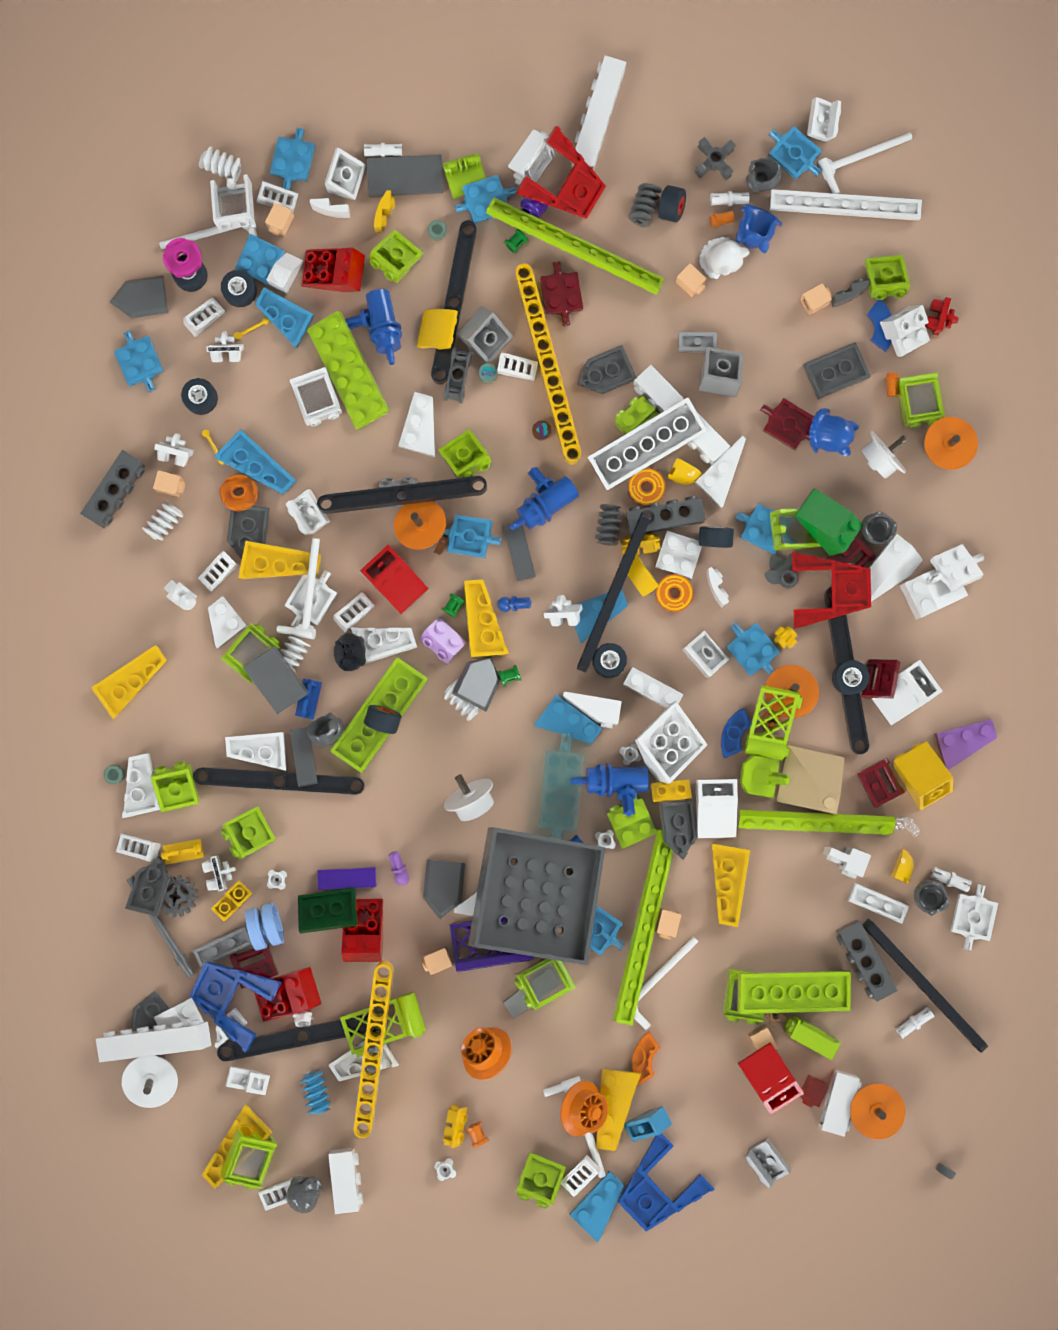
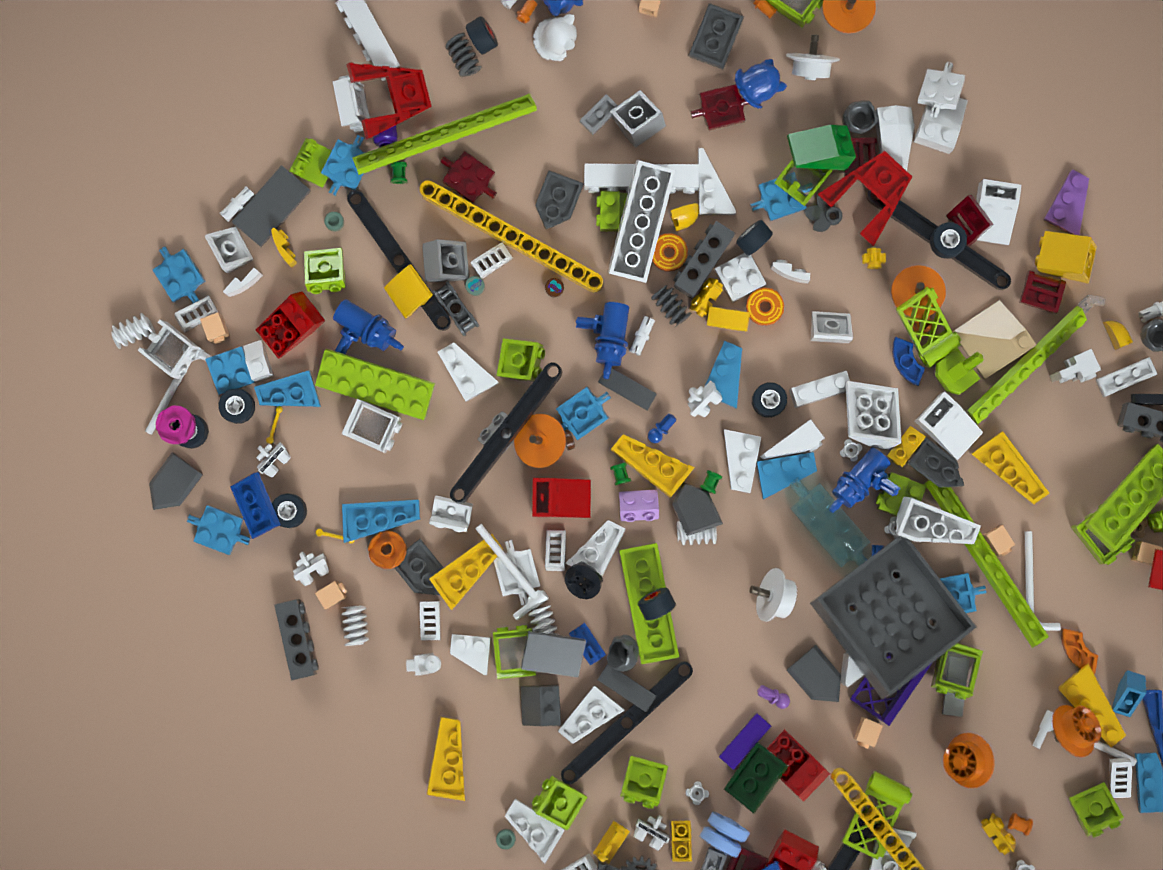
camera: 40 degrees left, 0 degrees up
(180, 369) = (255, 505): none -> blue tile
(201, 326) = (238, 451): white slope -> none
(233, 708) = (541, 705): none -> dark grey slope
(548, 681) = (742, 457): none -> white wing
(567, 525) = (642, 335): none -> white pin
(614, 591) = (724, 348): black beam -> none
(627, 857) = (929, 524): none -> white wedge
(691, 280) = (551, 75): light nougat brick -> none
(753, 649) = (859, 289): dark azure plate -> none

